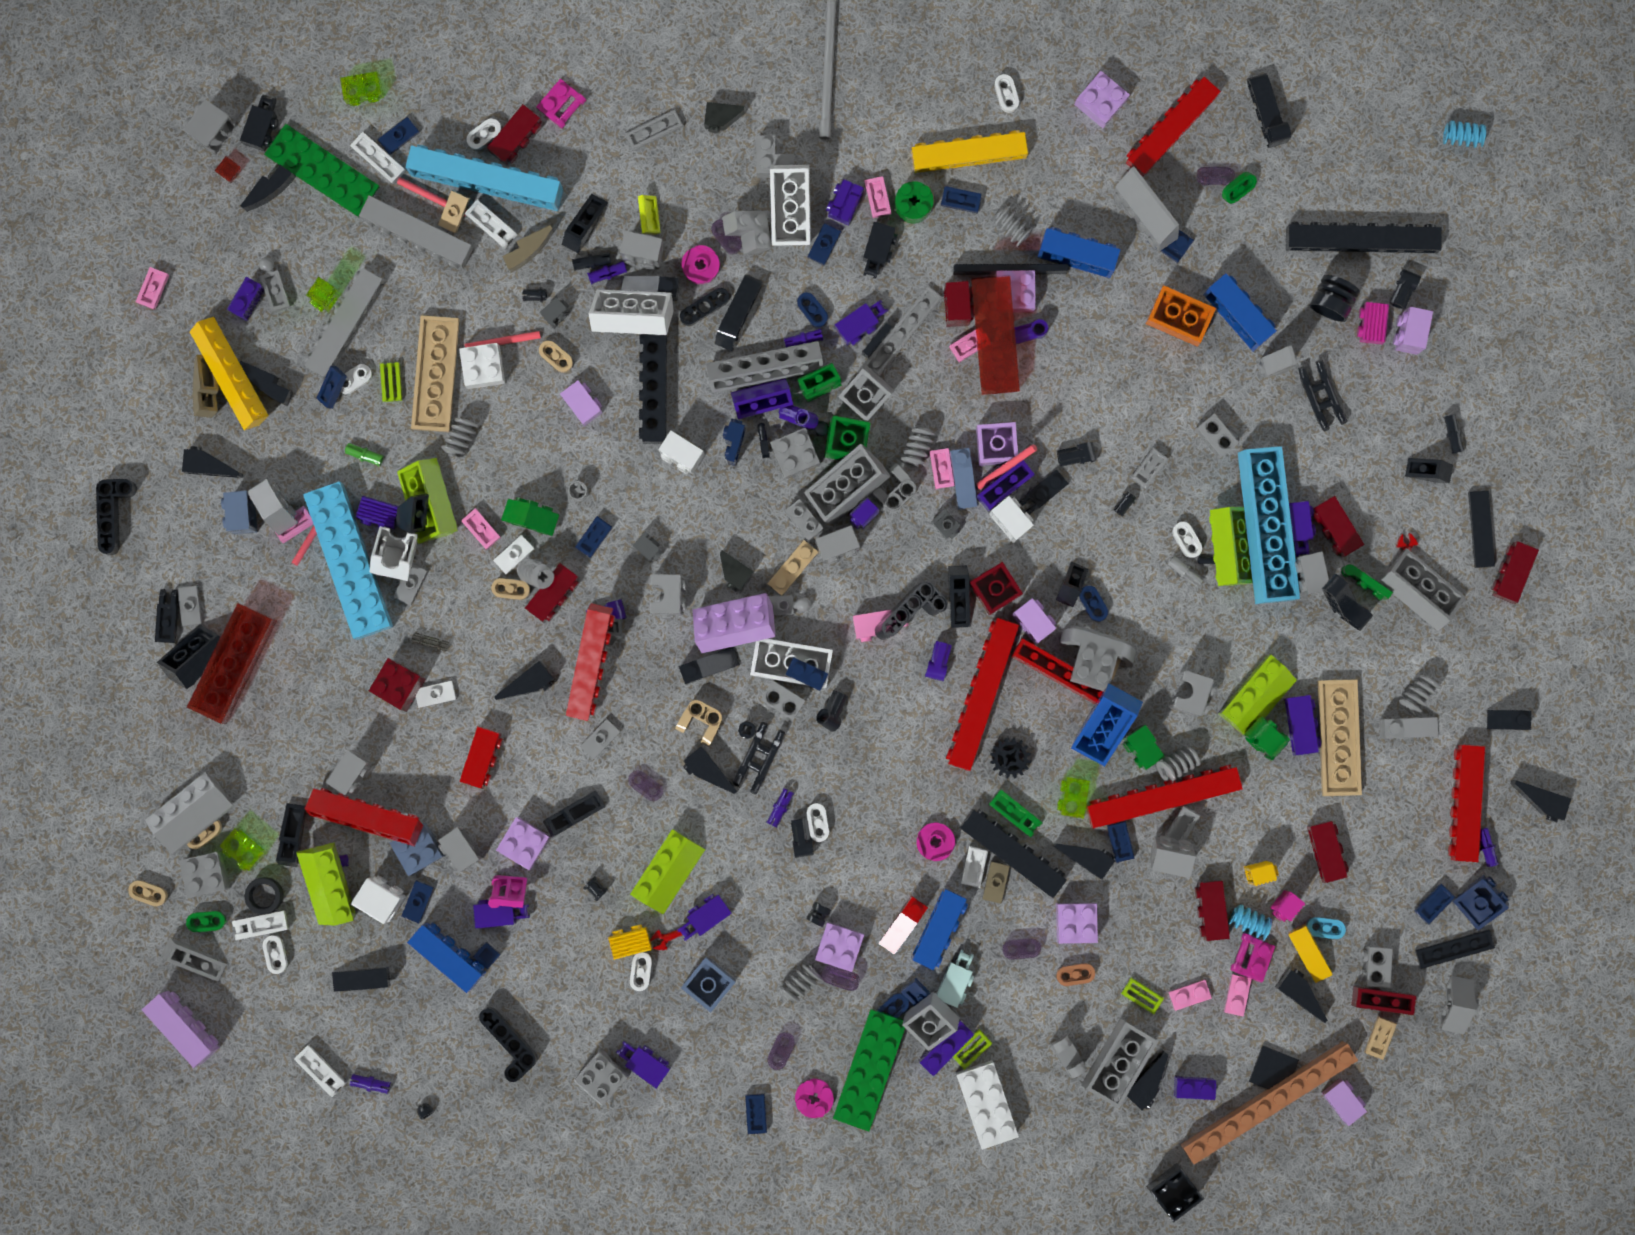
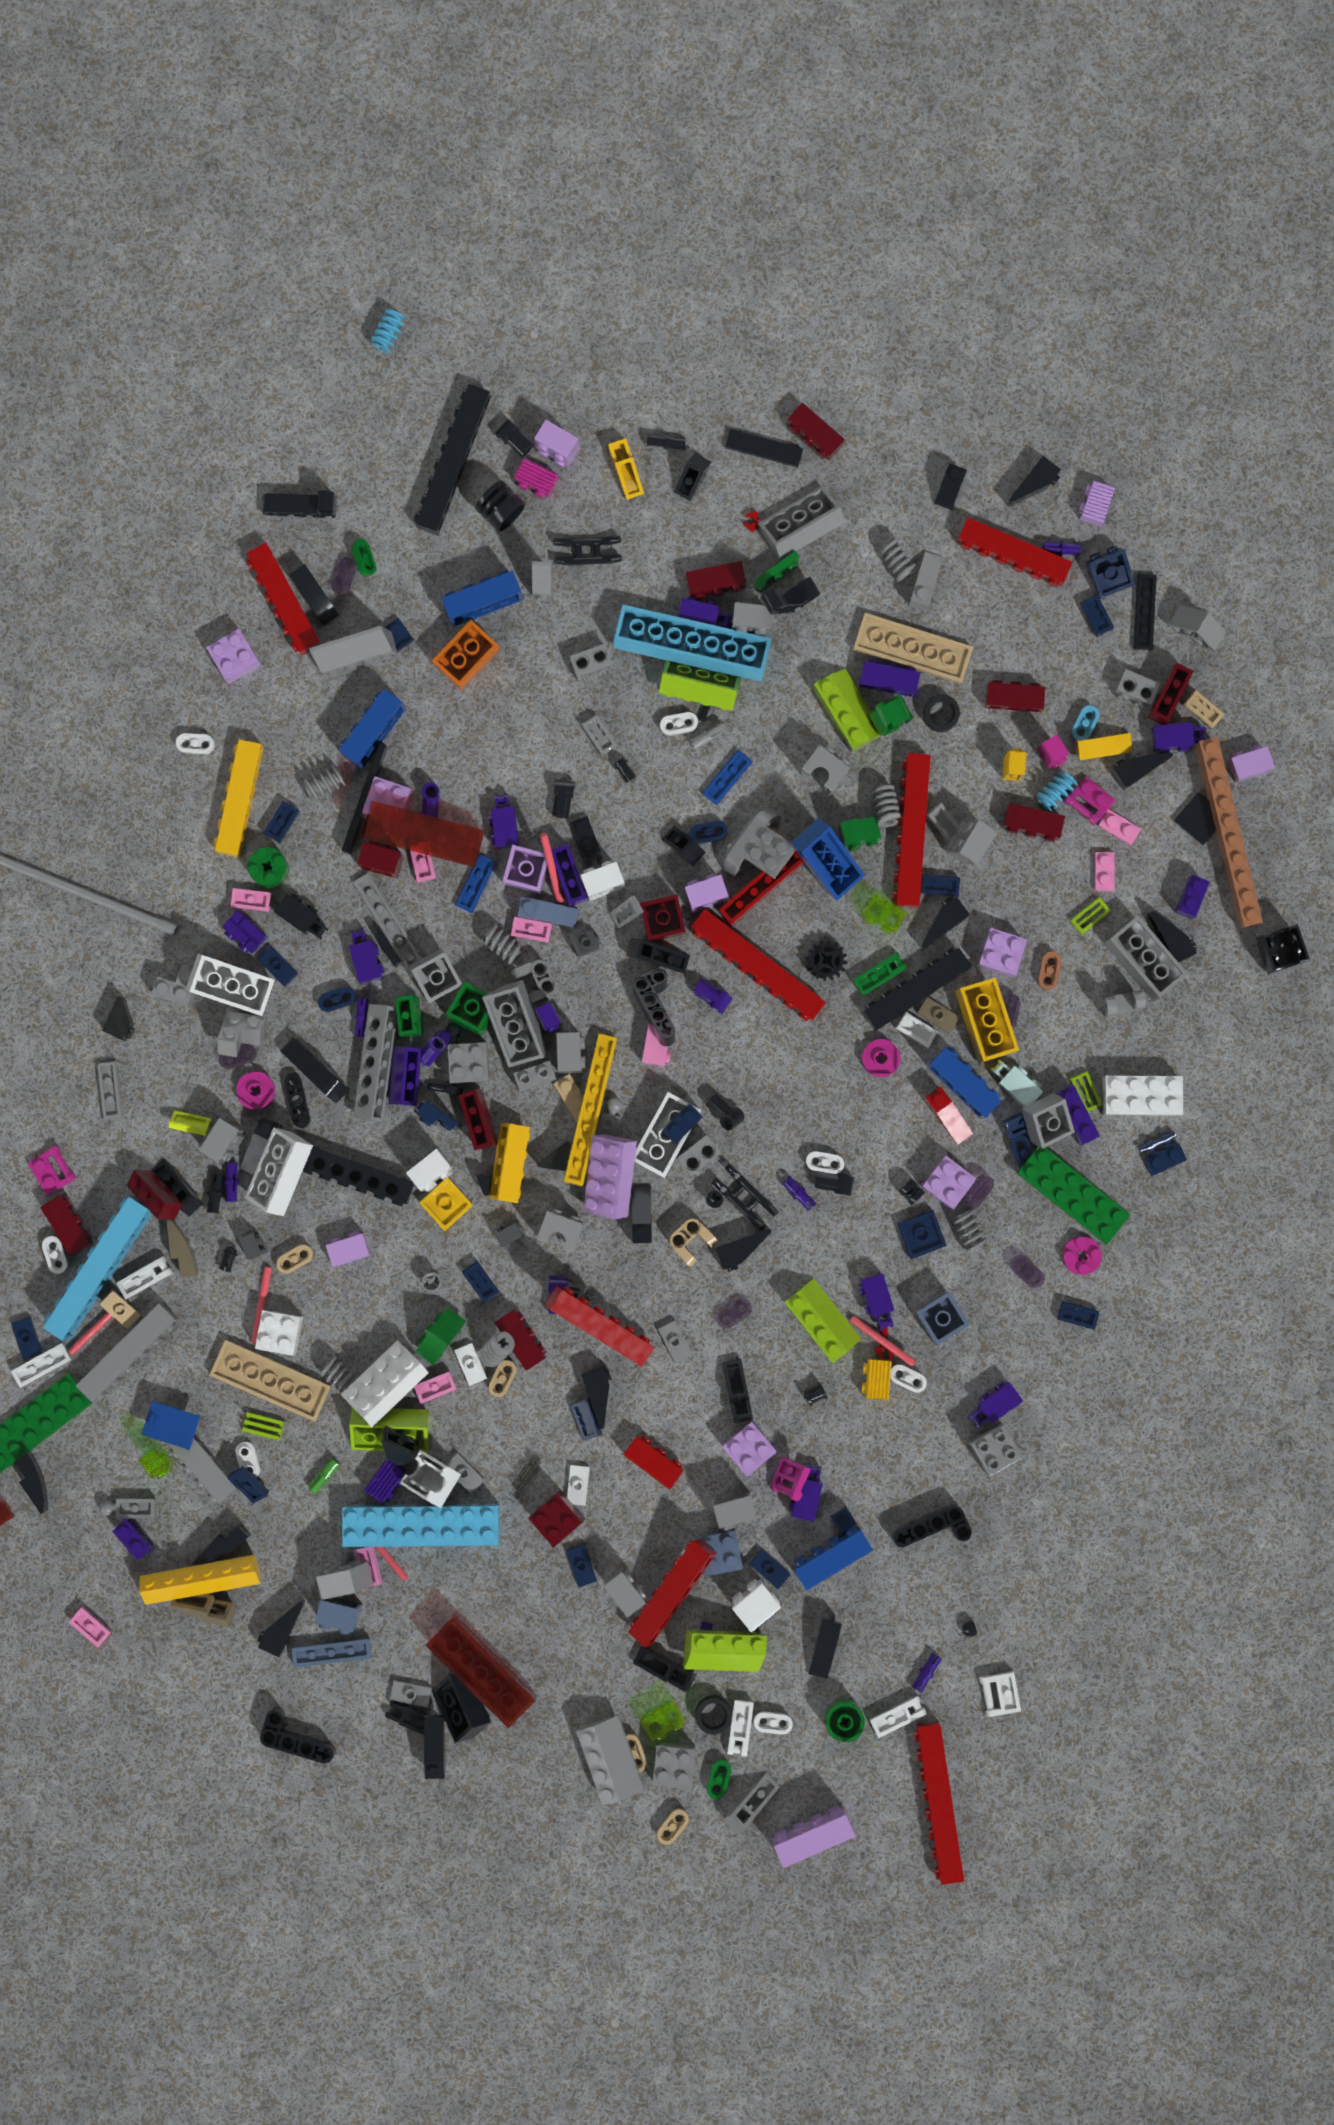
camera: 70 degrees left, 0 degrees up
(146, 645) = (434, 1747): none -> black slope
(202, 519) = (331, 1652): none -> sand blue plate
(252, 1138) = (940, 1804): none -> red brick
(288, 1021) = (839, 1730): none -> green brick
(361, 724) = (581, 1565): none -> dark blue plate
(362, 296) = (170, 1425): none -> blue container
(378, 1165) = (1006, 1692): none -> white plate
(467, 480) = (384, 1383): none -> white brick
(498, 680) = (586, 1419): none -> dark blue plate
(570, 204) = (154, 1194): none -> dark red brick
(655, 479) = (446, 1204): none -> yellow plate
(668, 934) = (882, 1340): none -> coral bar
(687, 509) = (485, 1183): none -> black slope
(714, 525) = (509, 1162): none -> yellow brick
(744, 481) = (478, 1119): none -> dark red brick
(781, 938) = (921, 1234): none -> dark blue plate
(790, 582) = (590, 1109): none -> yellow plate
(934, 1147) = (1165, 1158): none -> dark blue plate
(967, 401) = (475, 884): none -> blue tile
(989, 552) = (626, 912): none -> light grey plate
(1006, 930) = (986, 1020): none -> yellow slope
(1032, 408) = (503, 824): none -> dark purple brick
(1152, 603) = (727, 777): none -> blue tile
(1187, 153) = (314, 594): none -> black slope
(1296, 775) = (939, 699): none -> black tyre
(1344, 1020) = (1176, 736): none -> dark purple brick
(1413, 404) = (625, 468): none -> yellow slope
(1544, 866) = (1097, 502): none -> lavender brick

